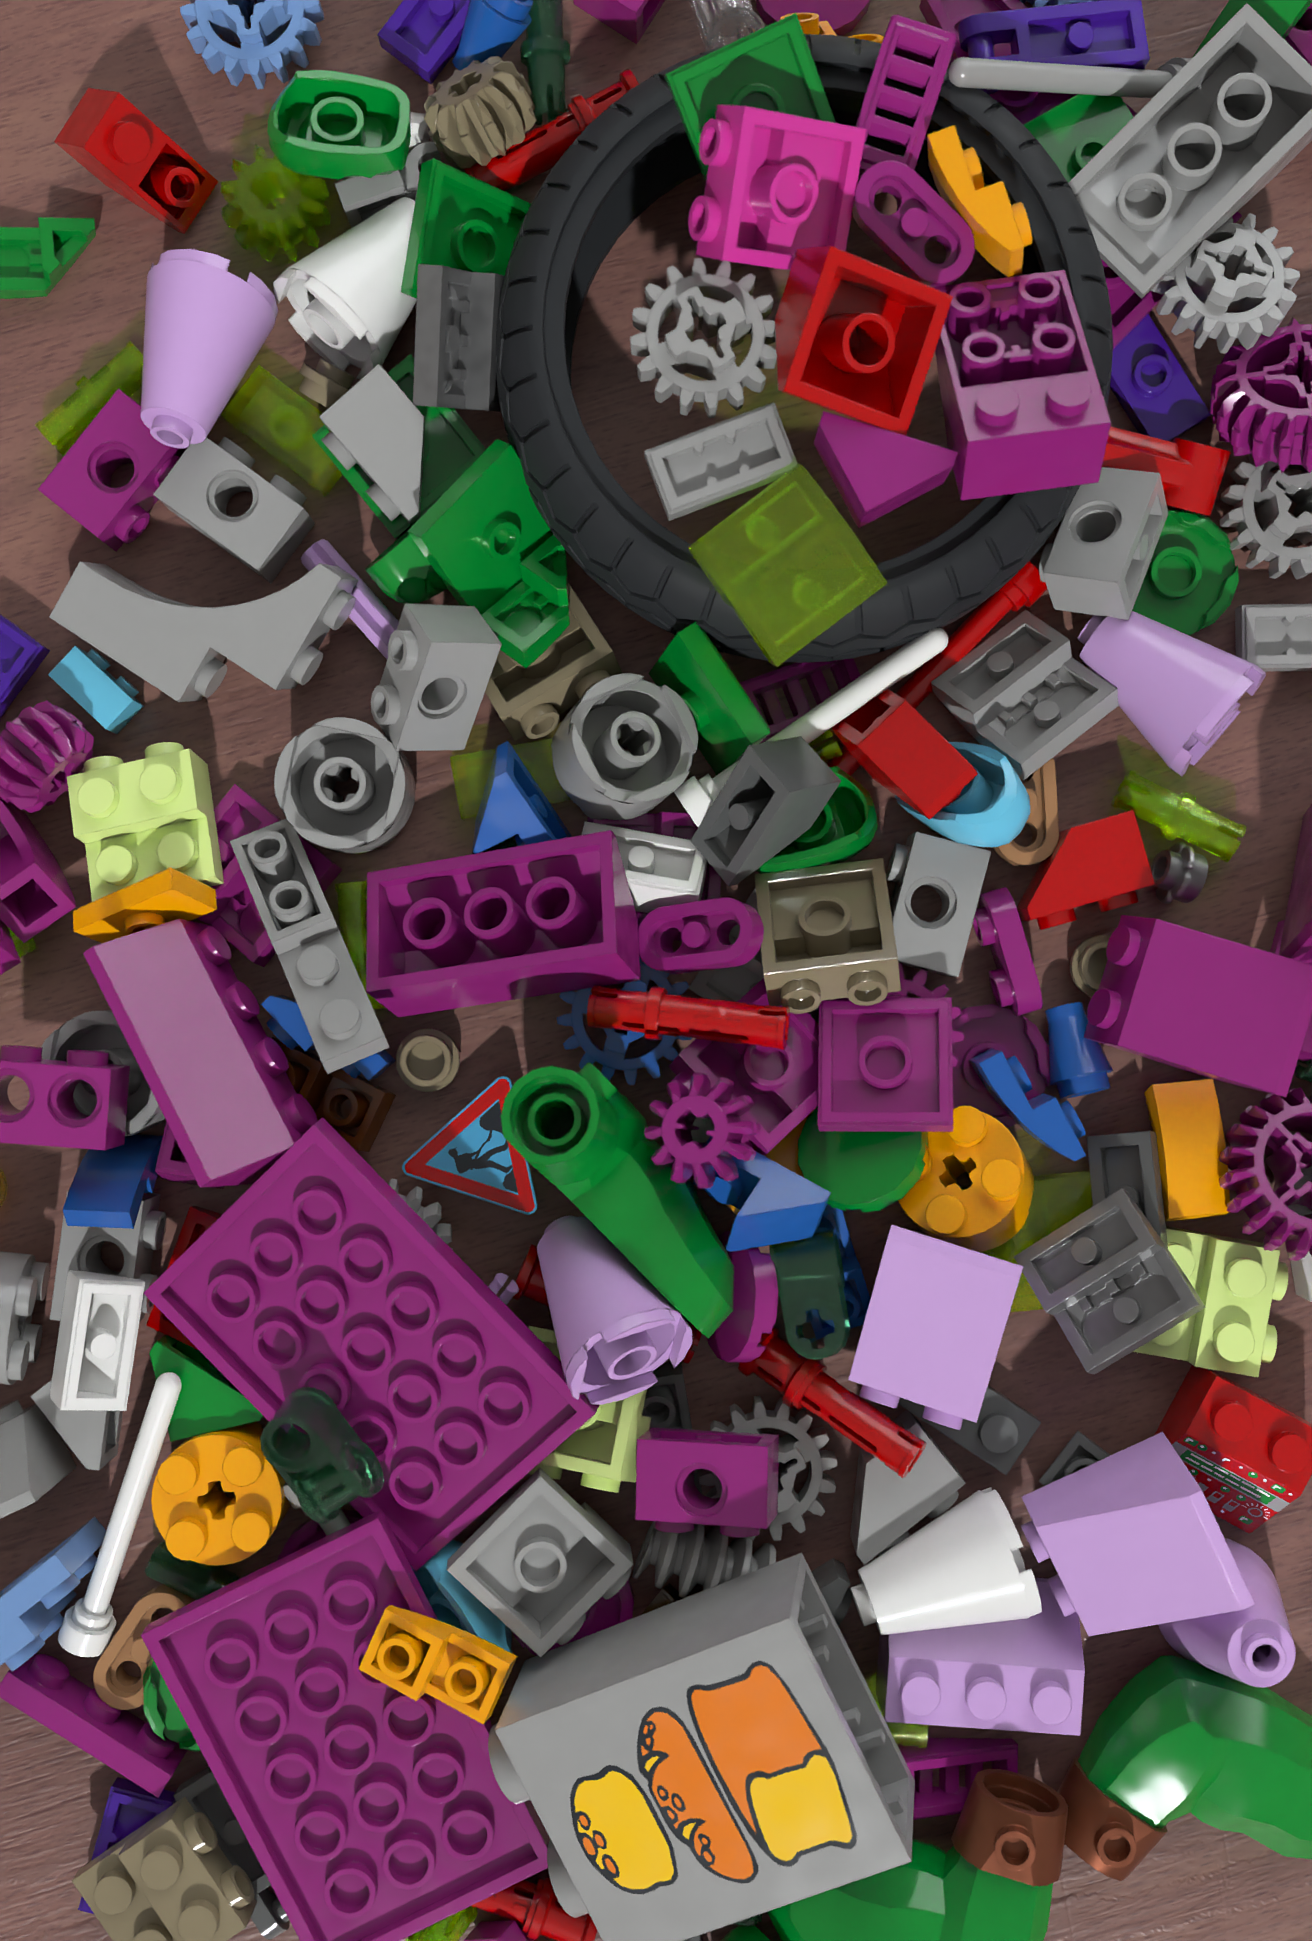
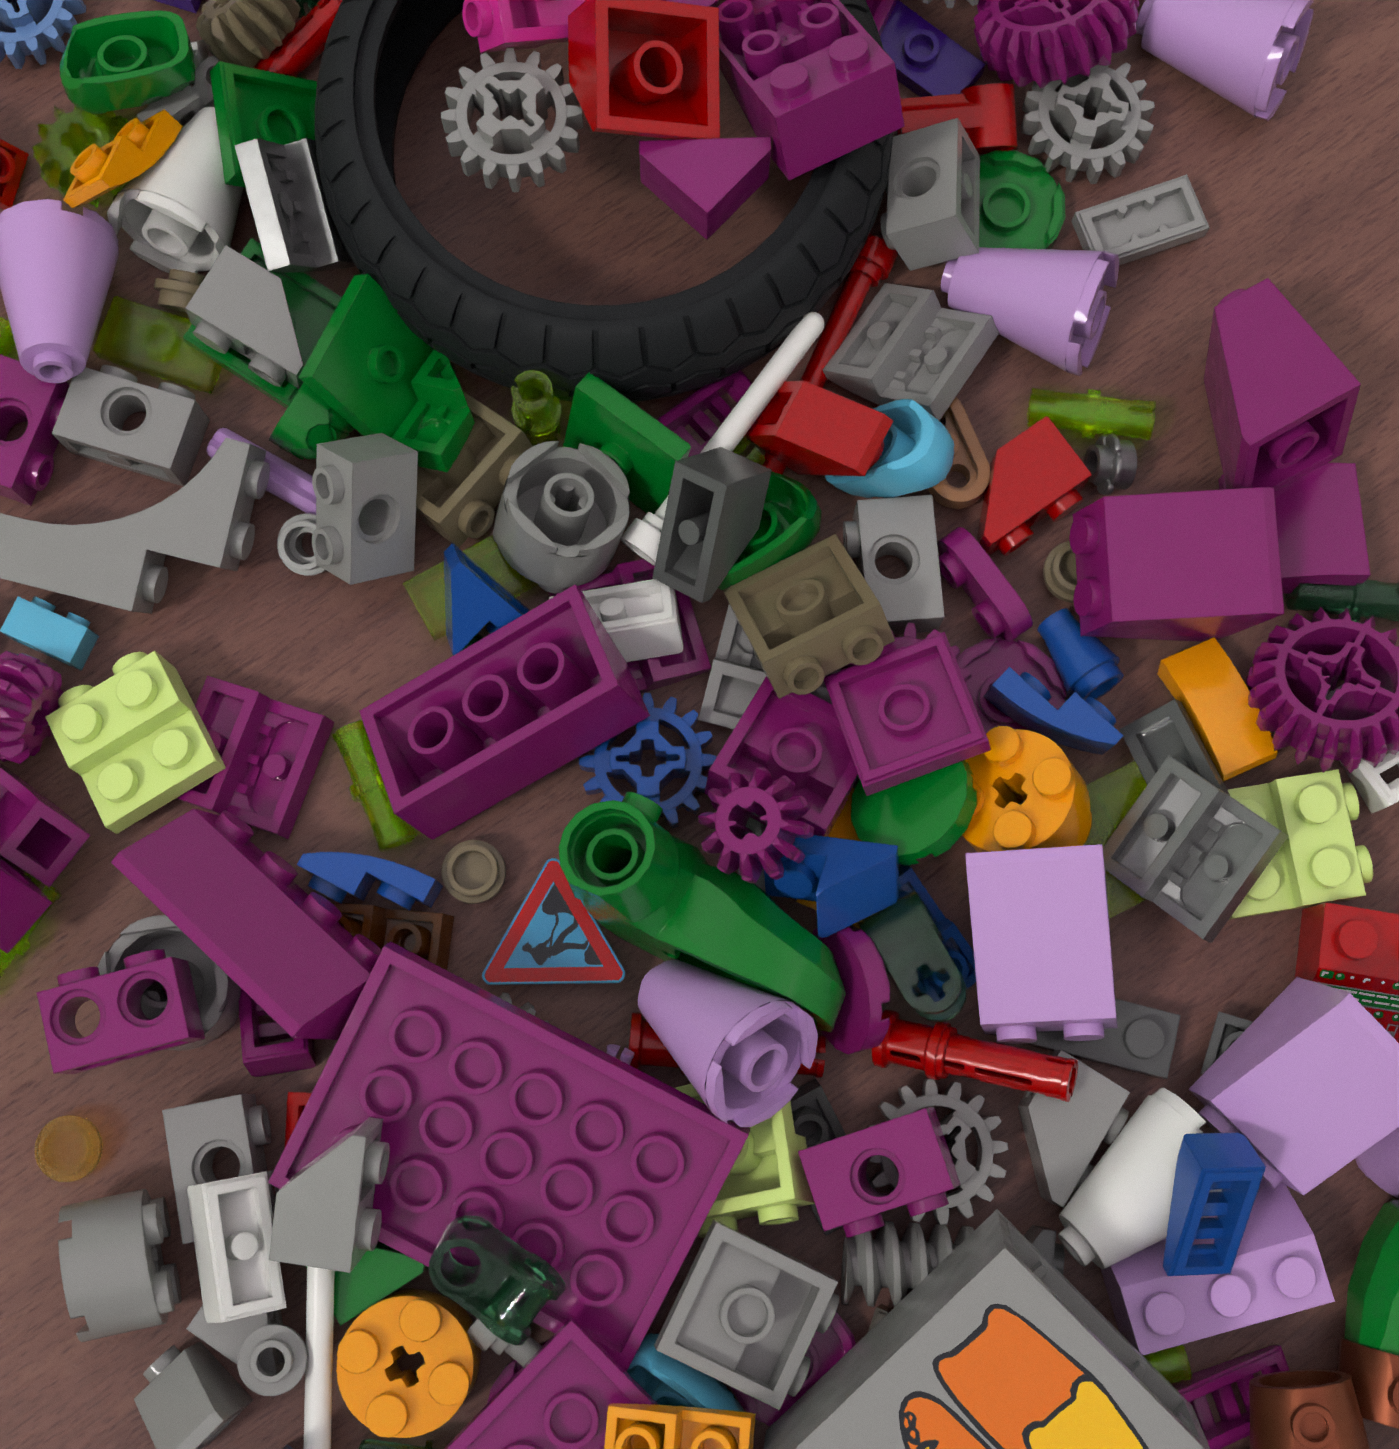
camera: 20 degrees left, 10 degrees down
(112, 1184) = (205, 1085): blue slope -> none
(112, 1440) = (294, 1353): none -> light grey plate
(145, 905) = (162, 799): light orange plate -> none
(189, 1338) = (327, 1207): none -> light grey slope
(298, 239) = (121, 160): none -> light orange slope
(309, 946) = (326, 790): light grey slope -> none
(328, 754) = (285, 618): light grey brick -> none
(353, 682) = (290, 545): none -> light grey plate
(631, 618) = (532, 409): none -> clear neon green pin
(671, 1015) = (692, 735): red pin -> none
(704, 934) = (695, 653): magenta plate -> none
(720, 461) = (563, 219): light grey plate -> none
(787, 565) = (654, 286): clear neon green slope -> none
(1003, 1613) = (1204, 1165): none -> blue slope

